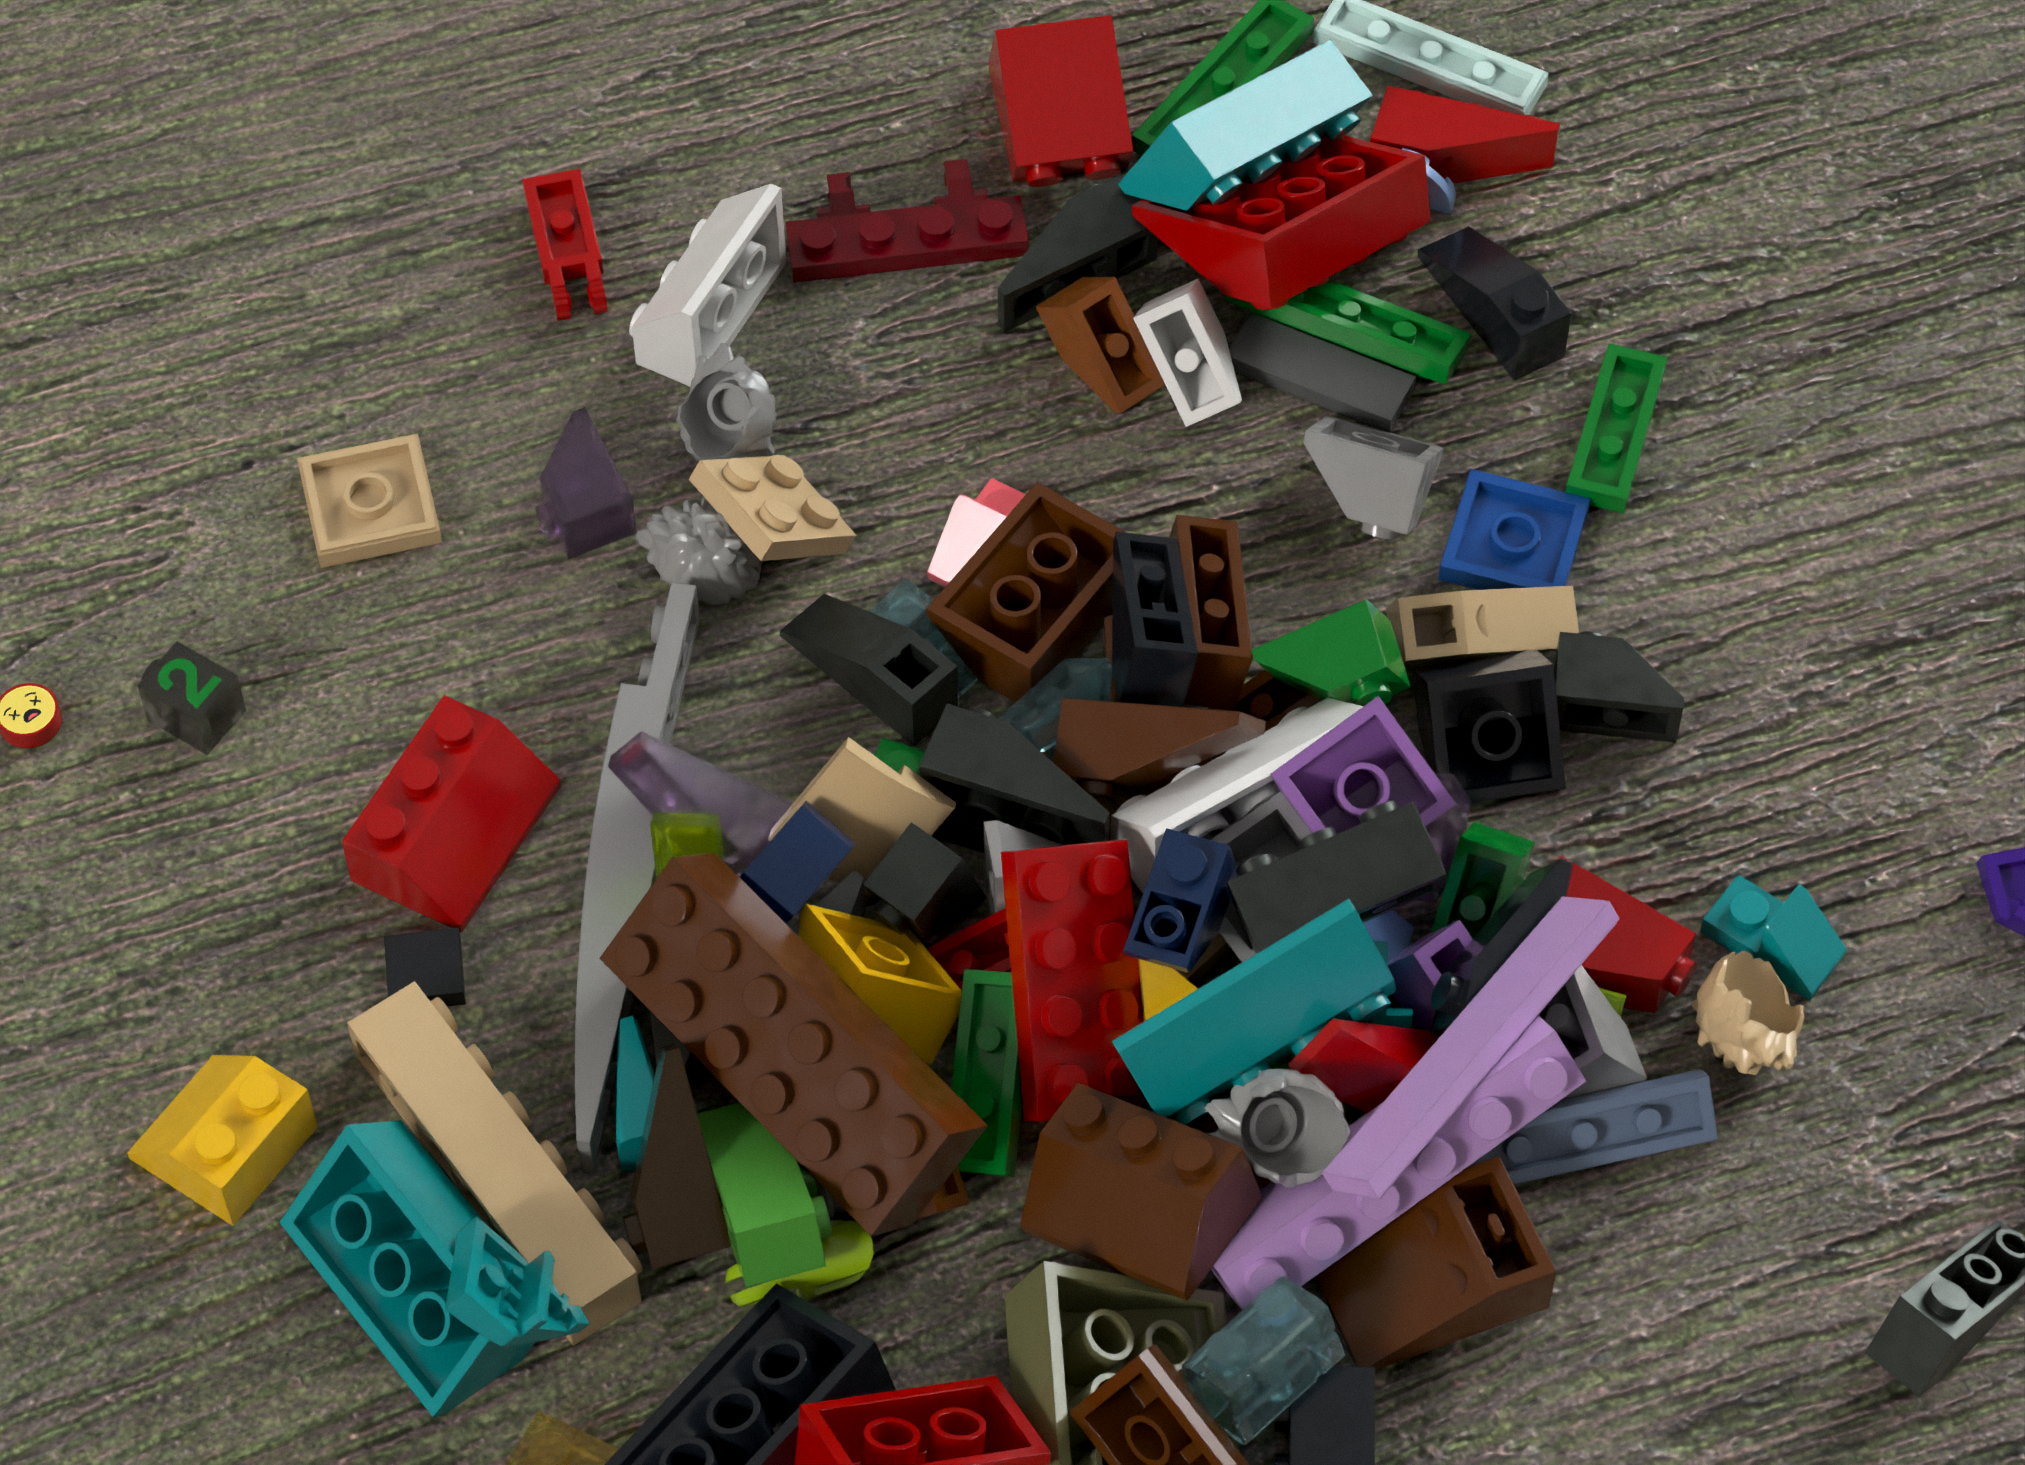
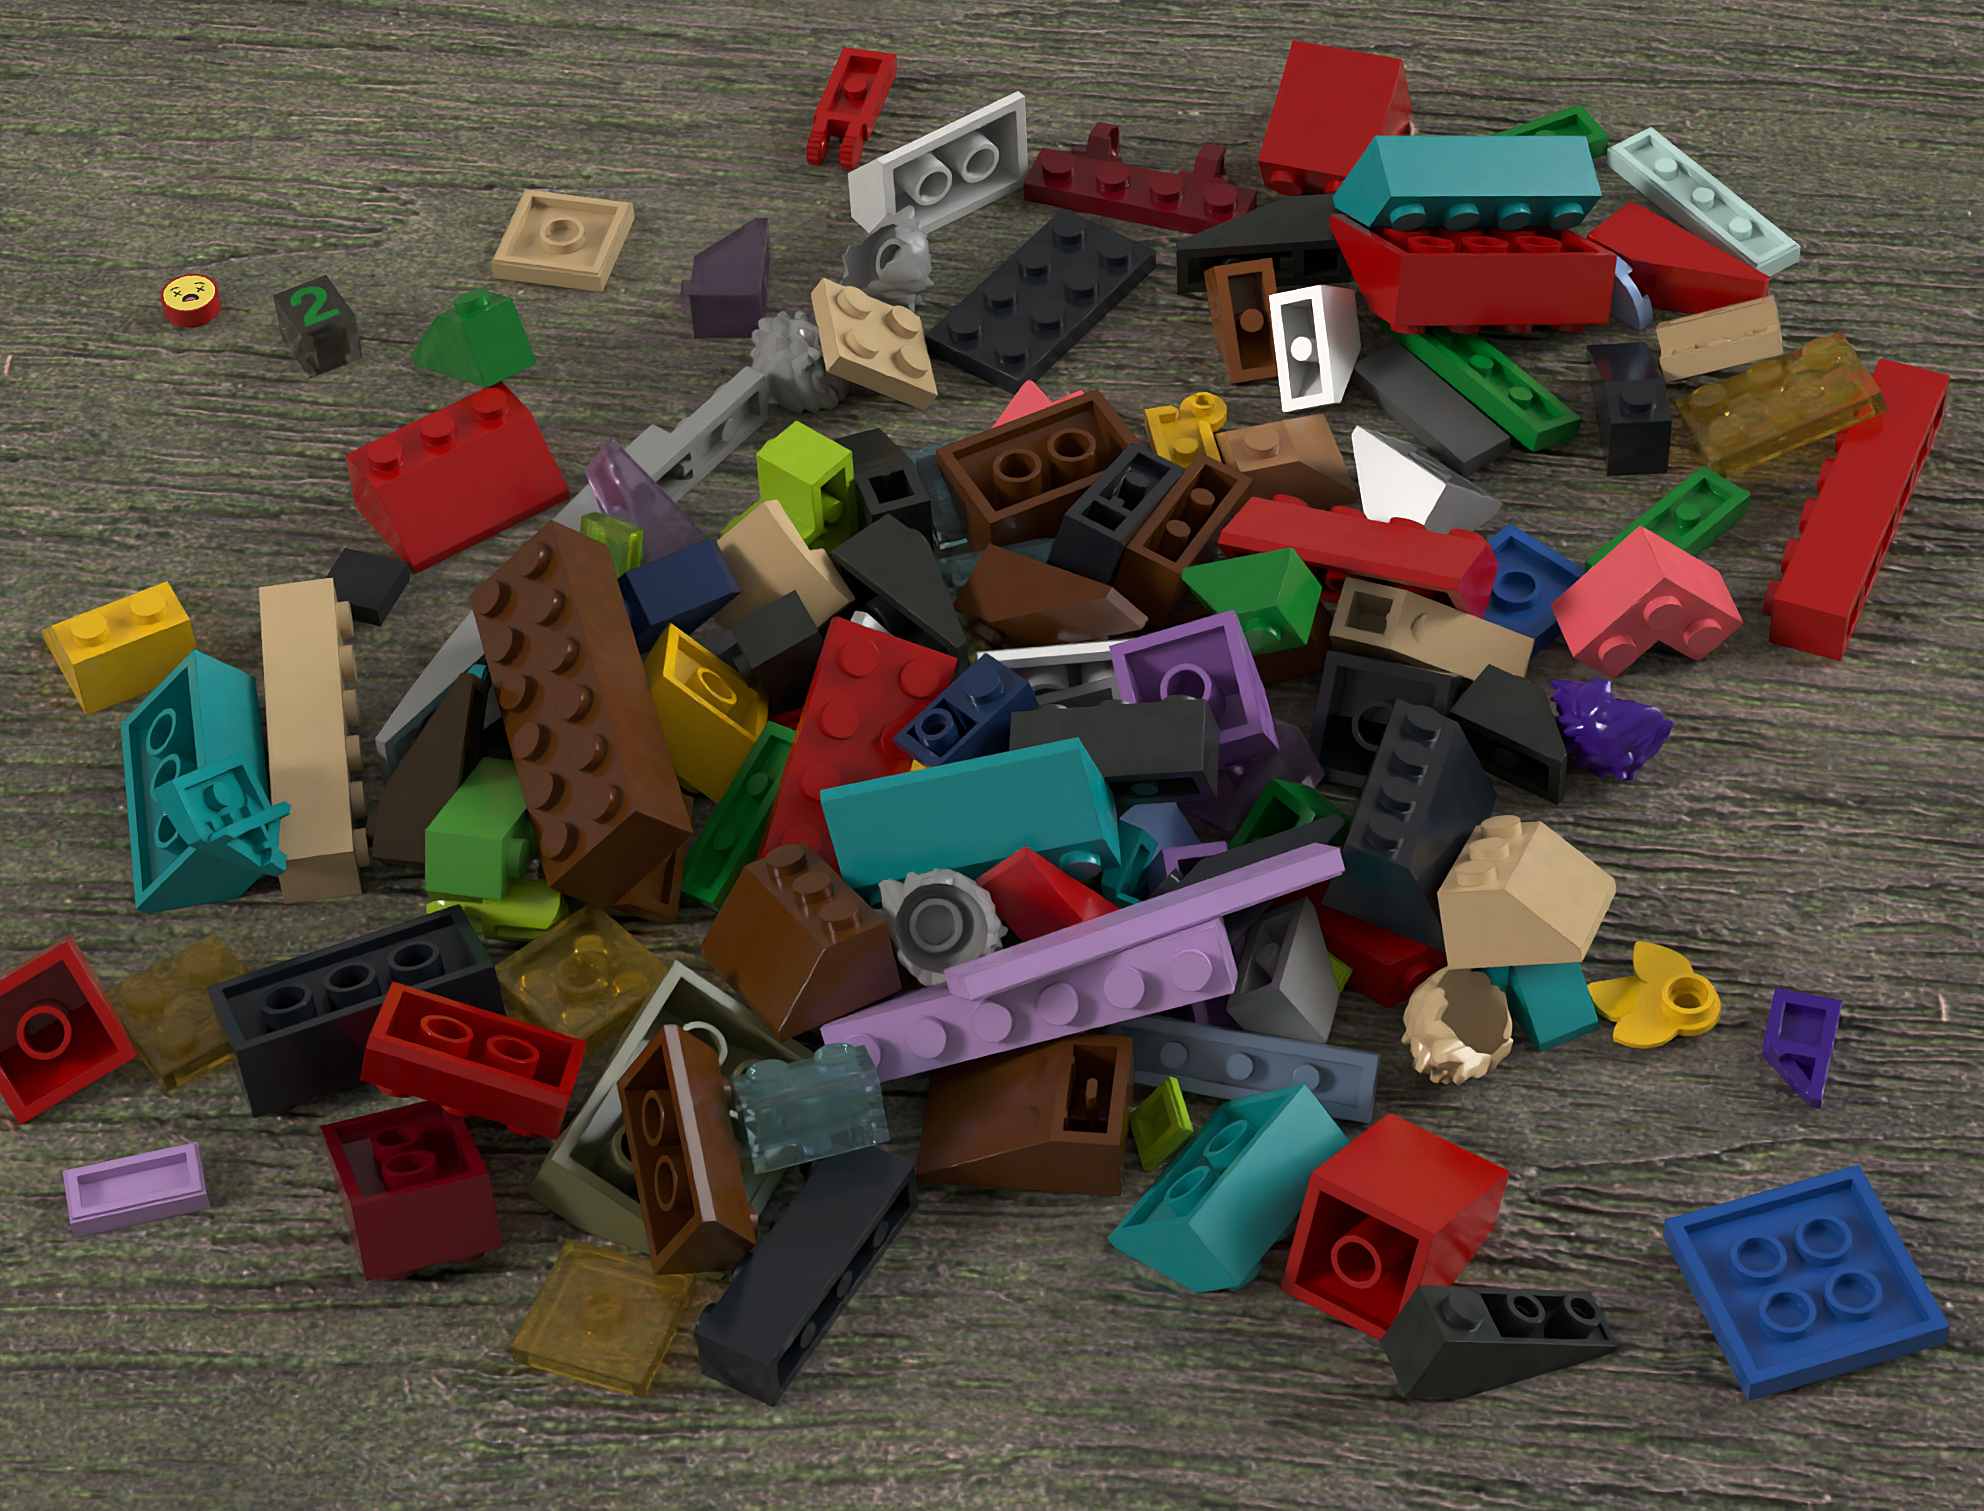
camera: 30 degrees right, 10 degrees down
(392, 662) = (476, 340): none -> green slope
(818, 705) = (812, 484): none -> lime brick
(886, 393) = (1040, 301): none -> black plate
(931, 1304) = (581, 977): none -> clear yellow plate
(1122, 492) = (1186, 433): none -> yellow hinge
(1223, 478) = (1290, 459): none -> medium nougat slope
(1410, 558) = (1343, 543): none -> red slope
(1546, 202) = (1719, 338): none -> tan slope
(1553, 1217) = (1161, 1124): none -> lime slope
(1595, 814) = (1410, 824): none -> black slope
(1645, 255) = (1780, 405): none -> clear yellow plate
(1649, 512) = (1641, 596): none -> coral brick
(1649, 1260) = (1231, 1190): none -> teal slope
(1692, 657) = (1607, 731): none -> dark purple hair
(1748, 868) = (1521, 898): none -> tan slope
(1765, 335) = (1855, 514): none -> red brick
(1814, 1238) = (1388, 1218): none -> red slope
(1875, 908) = (1658, 1000): none -> yellow plate

